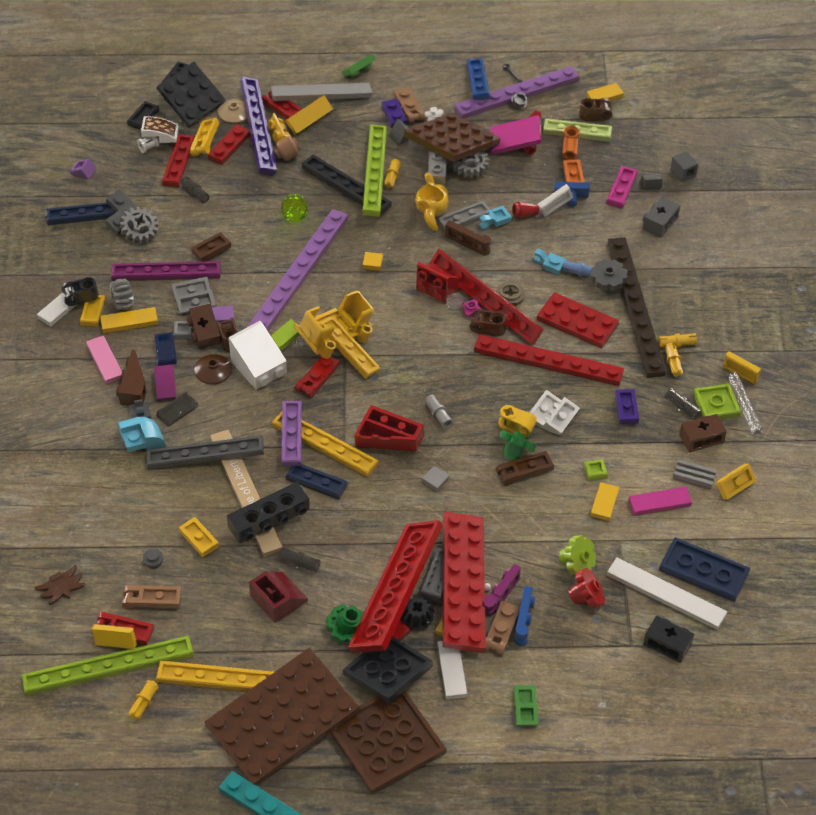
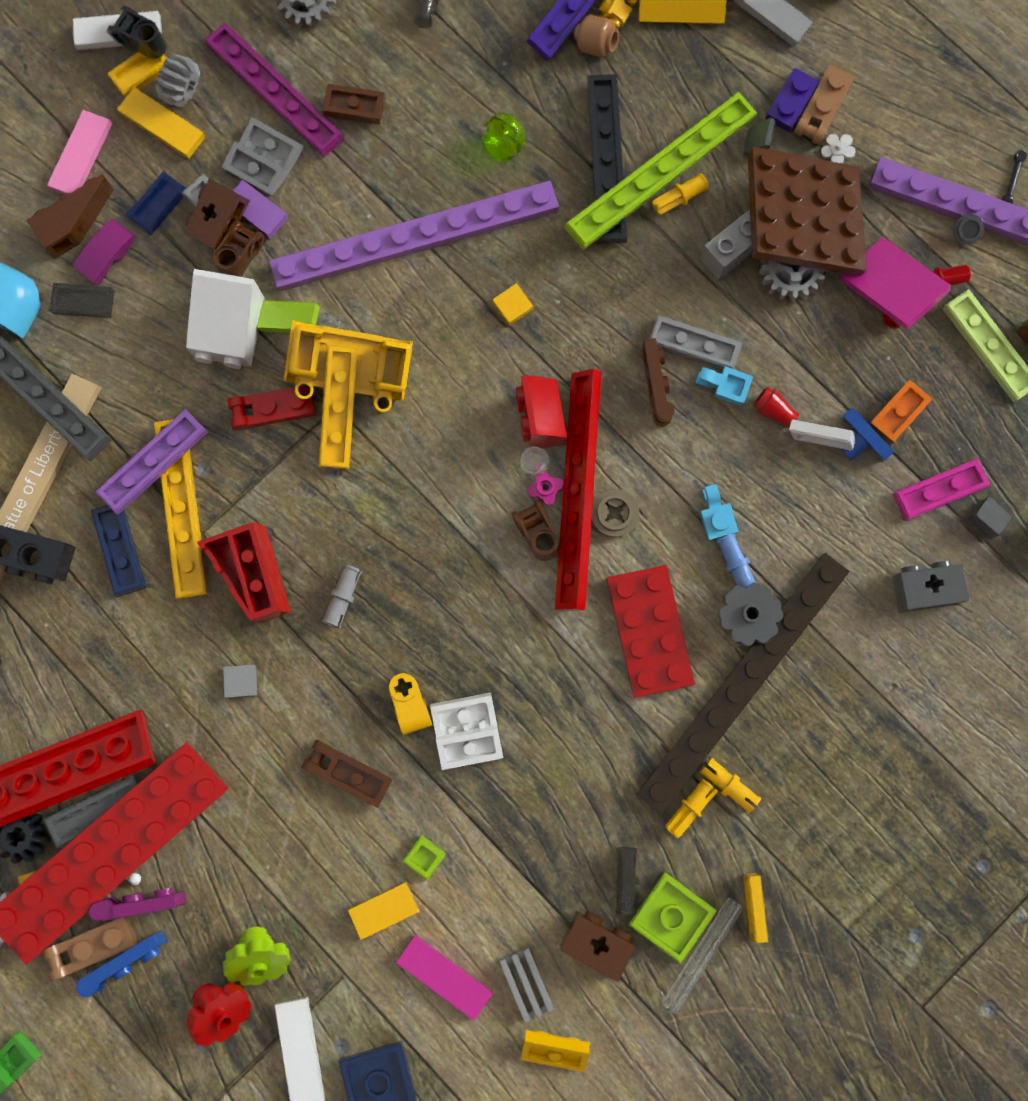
camera: 50 degrees right, 30 degrees up
(140, 409) = (39, 266): dark grey tile -> none
(213, 369) = (174, 294): reddish brown dish -> none
(432, 201) = (671, 286): yellow piece -> none
(478, 79) = (954, 145): blue tile -> none
(515, 444) = (368, 736): green plant -> none
(549, 360) = (550, 653): red plate -> none
(570, 143) = (951, 361): orange piece -> none
(627, 406) = (557, 814): dark purple plate -> none

